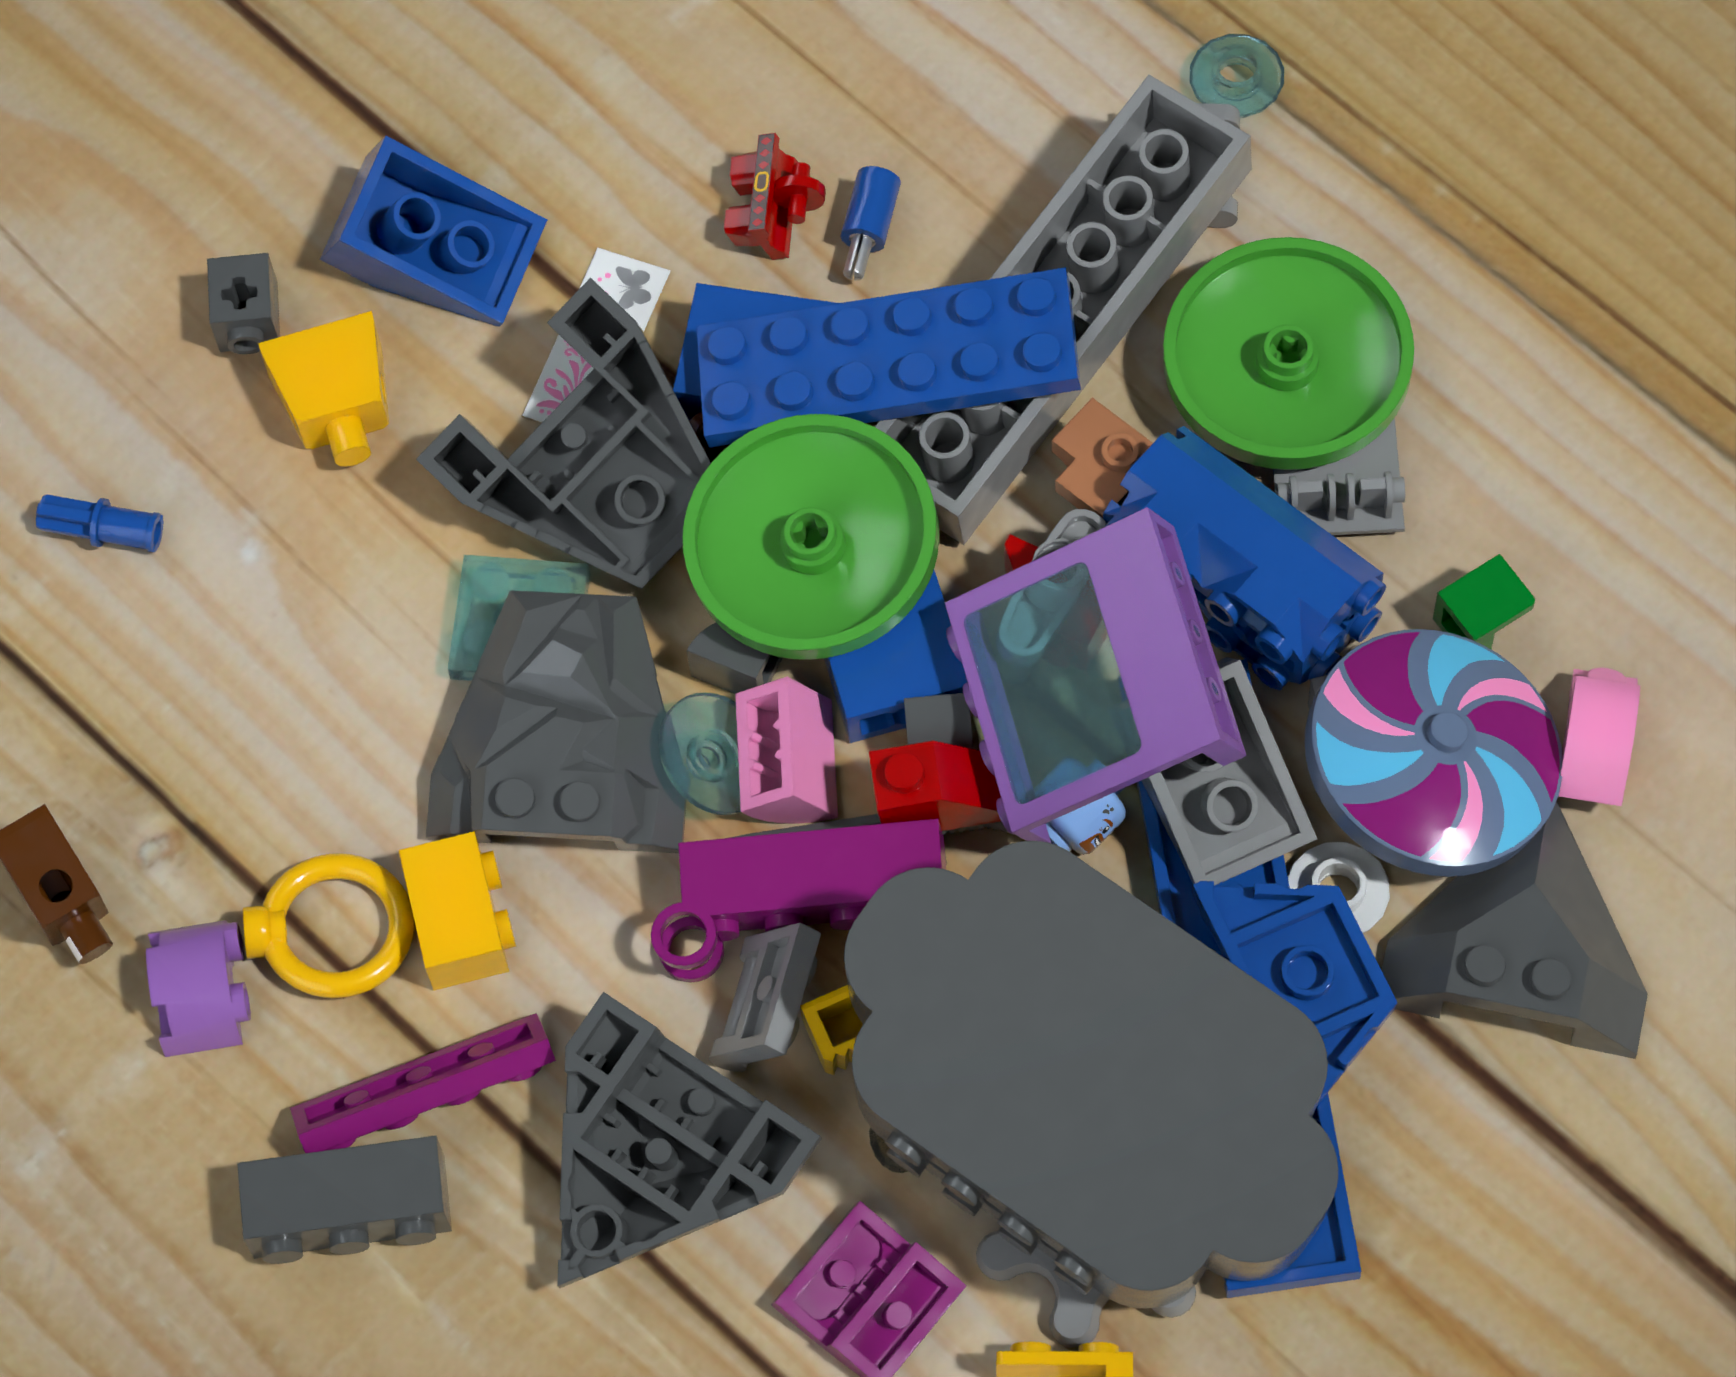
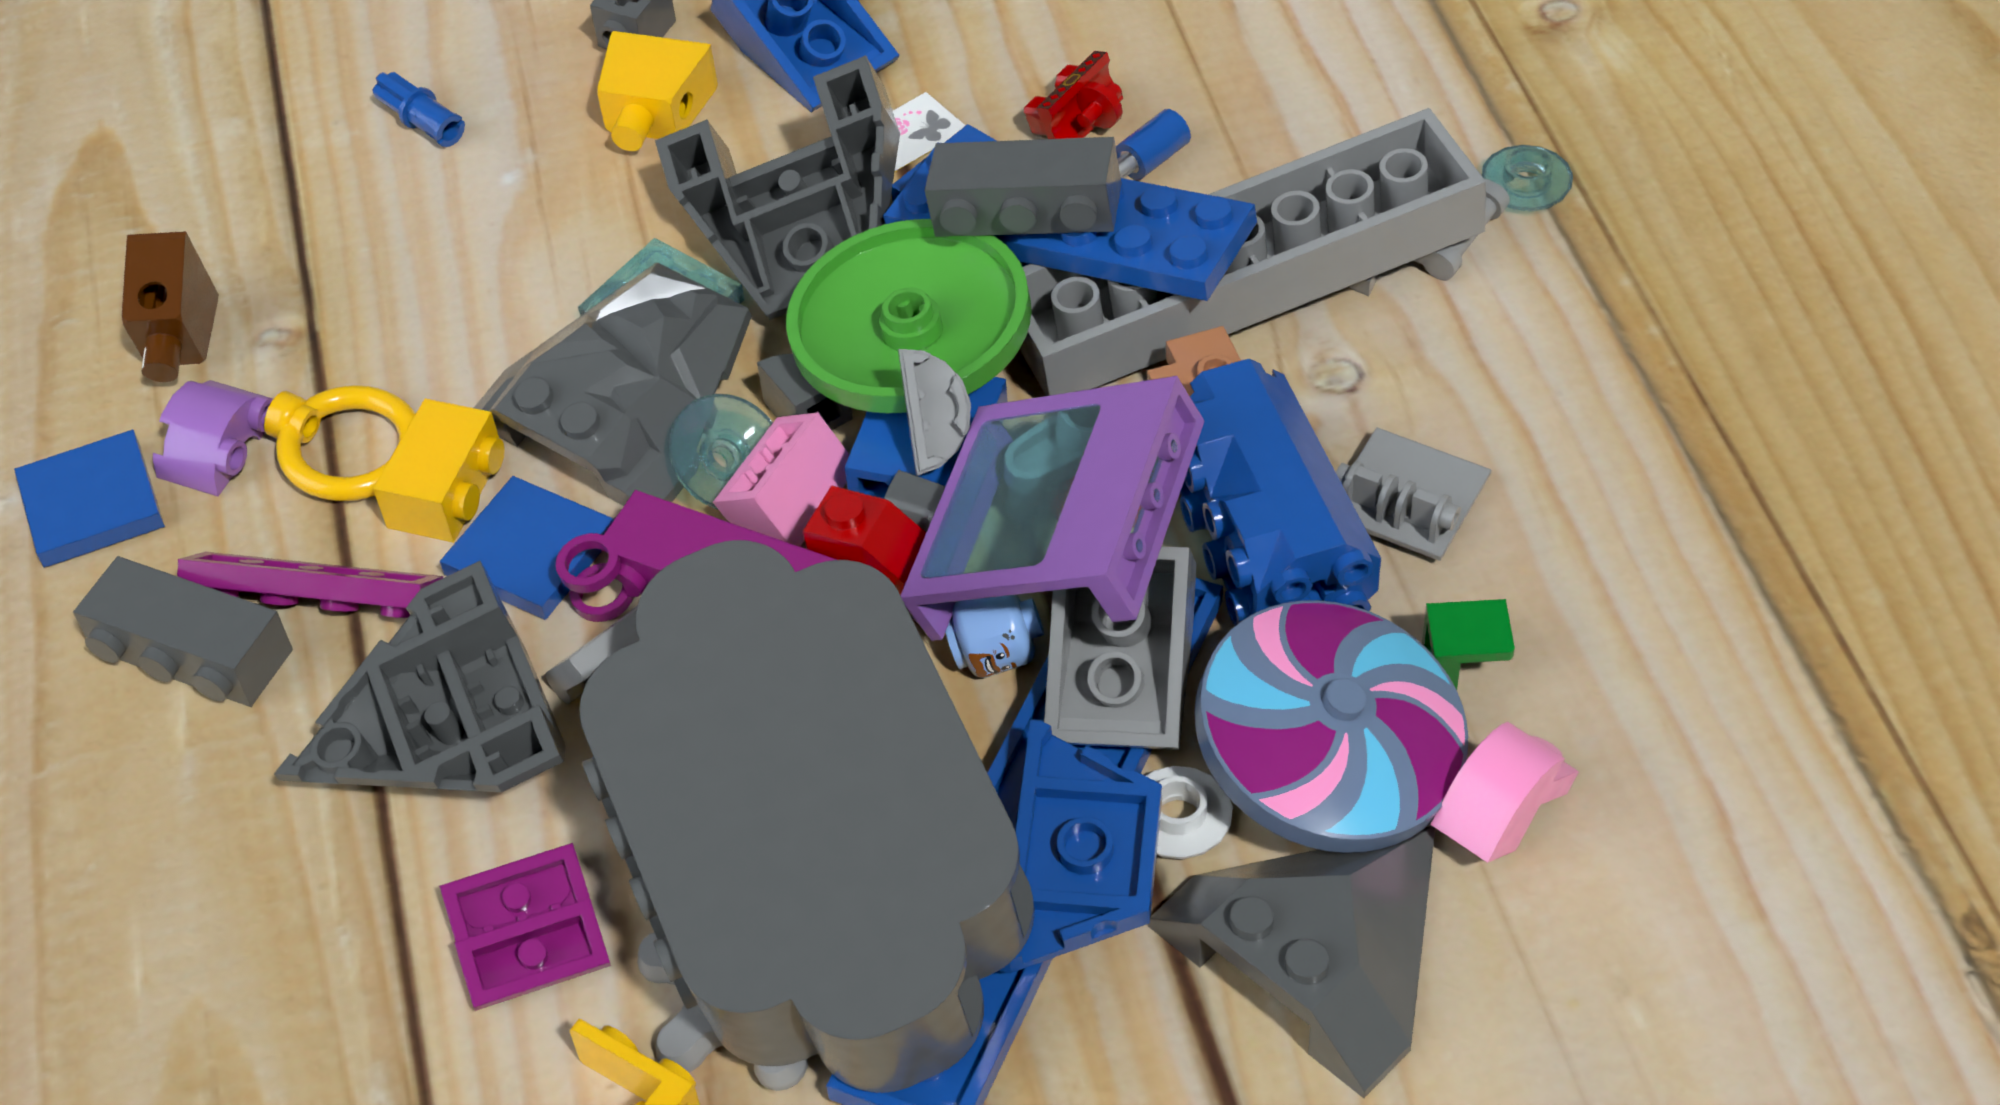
camera: 30 degrees right, 15 degrees down
(124, 1114) = (88, 498): none -> blue tile
(590, 940) = (520, 541): none -> blue tile
(851, 358) = (1024, 187): none -> dark grey brick
(912, 627) = (935, 408): none -> light grey tile
(1288, 353) = (1423, 375): bright green dish -> none

